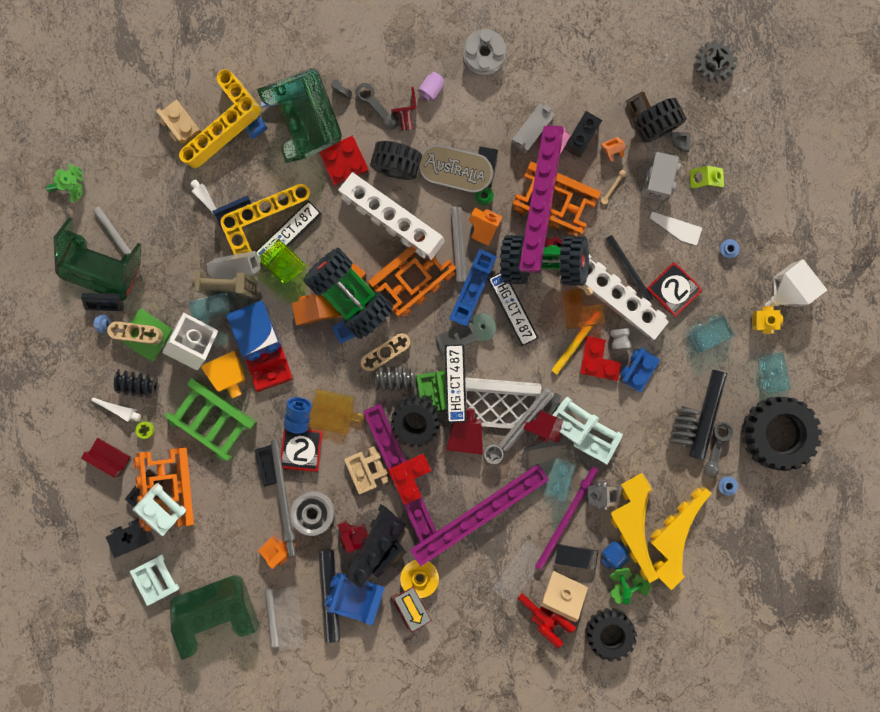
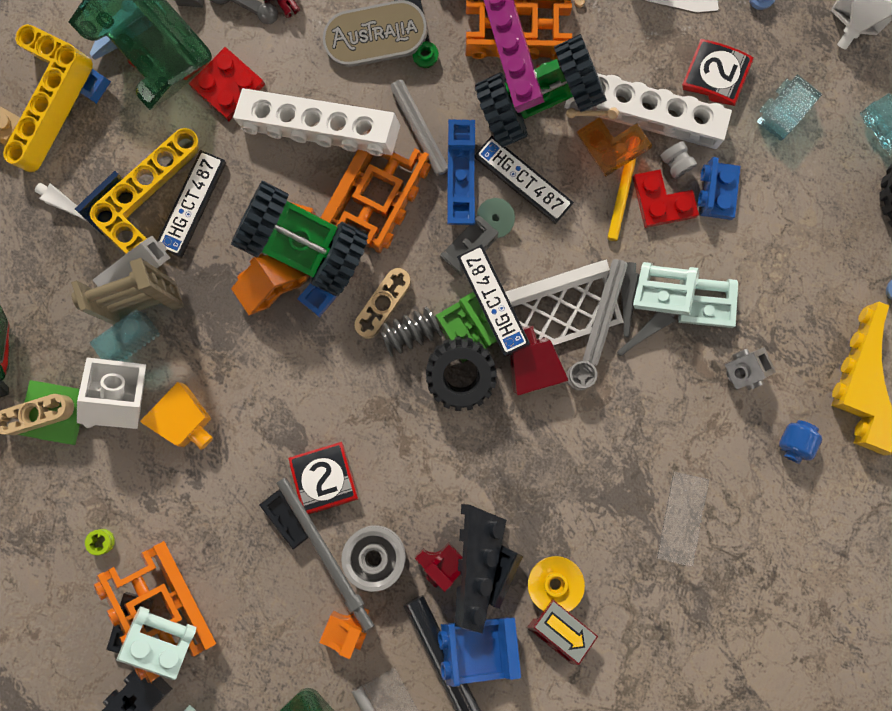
camera: 25 degrees left, 5 degrees down
(106, 458) = (60, 603): dark red panel -> none
(126, 413) = (63, 530): white piece -> none
(135, 386) = (61, 486): black piece -> none
(212, 400) = (175, 463): bright green fence -> none
(254, 331) = (195, 345): blue panel -> none
(270, 370) = (234, 386): red slope -> none
(282, 261) = (196, 238): clear neon green slope -> none
(297, 415) = (298, 432): blue wheel -> none
(333, 411) = (343, 410): clear yellow plate -> none
(361, 473) = (416, 474): tan plate -> none
(393, 456) = (476, 459): magenta plate -> none
(396, 160) = (292, 48): black tyre -> none
(404, 476) = (477, 453): red plate -> none
(479, 515) = (597, 465): magenta plate -> none
(484, 225) = (443, 87): orange brick -> none
(546, 427) = (636, 308): dark red brick -> none
(547, 621) = (753, 569): red plant -> none
(560, 479) = (684, 371): clear light blue bracket -> none
(564, 596) = (760, 525): tan plate -> none
(567, 517) = (718, 368): magenta bar -> none
(576, 556) = (750, 465): black slope -> none
(617, 649) = (866, 556): black tyre -> none
(623, 593) = (832, 487): bright green plant -> none
(629, 268) = (646, 69): black bar -> none
(631, 522) = (803, 388): yellow arch -> none
(685, 426) = (811, 236): dark grey piece -> none
(708, 414) = (833, 210): black piece -> none
(711, 467) = (869, 274): dark grey piece -> none
(767, 320) = (851, 60): yellow brick -> none

